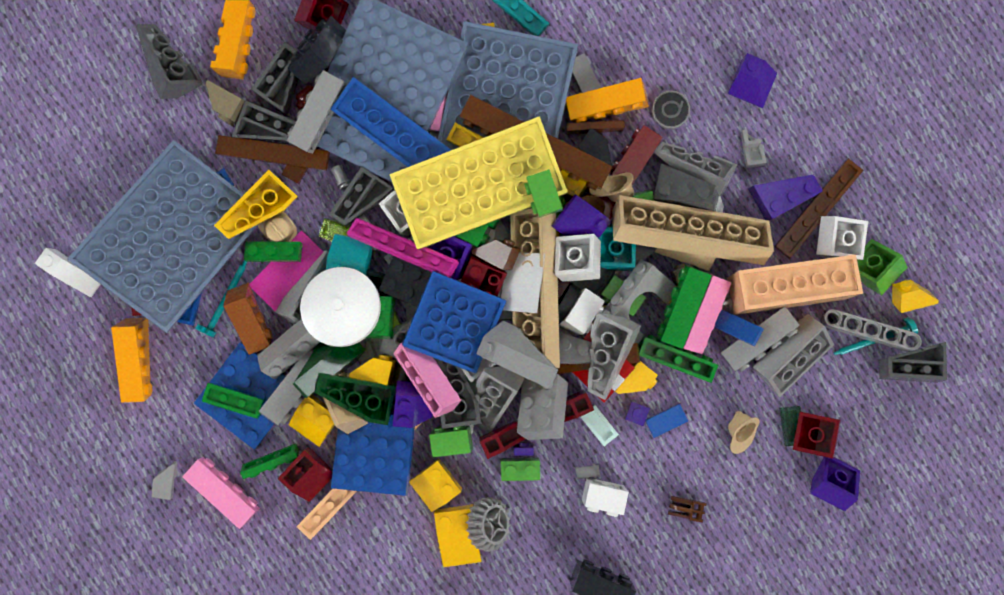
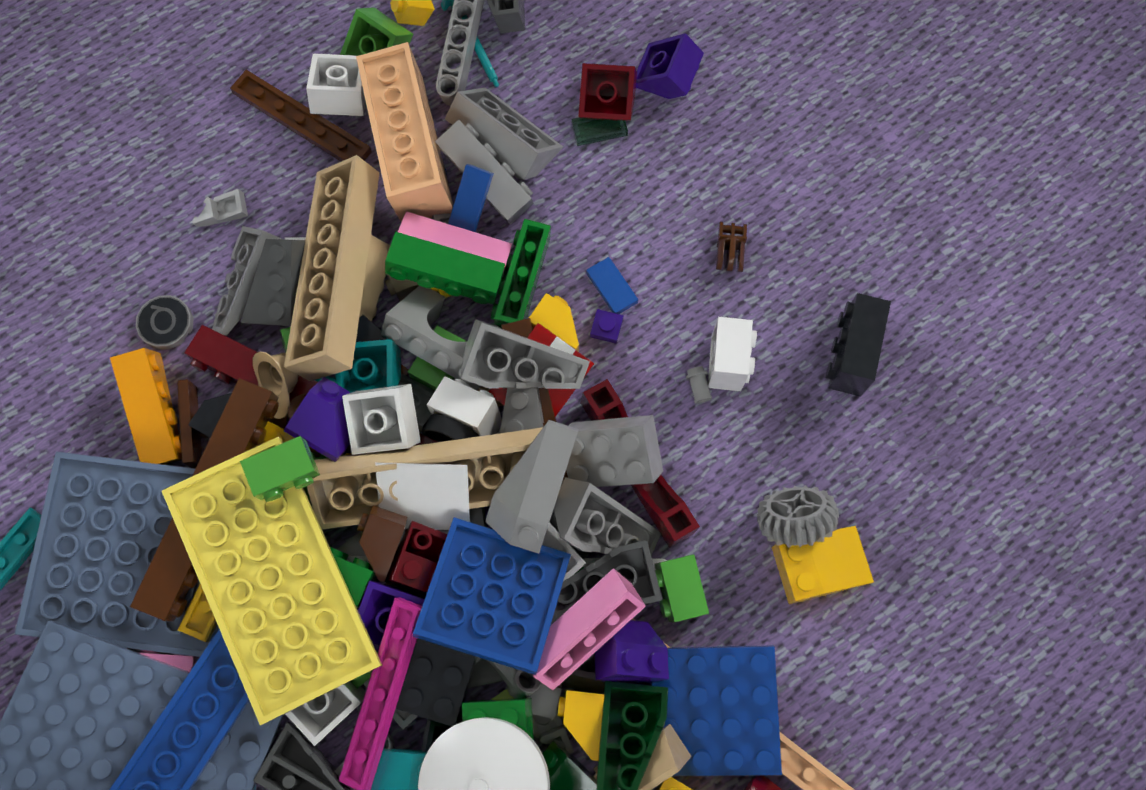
camera: 95 degrees left, 15 degrees down
(435, 485) = (753, 606): yellow slope -> none
(520, 469) = (708, 480): bright green brick -> none
(523, 449) = (678, 478): dark purple plate -> none
(584, 75) = (114, 445): light grey tile -> none
(599, 426) = (632, 374): light aqua tile -> none
(742, 430) = (612, 186): tan piece -> none
(753, 80) = (121, 217): dark purple slope -> none
(783, 195) = (283, 163): dark purple wedge -> none

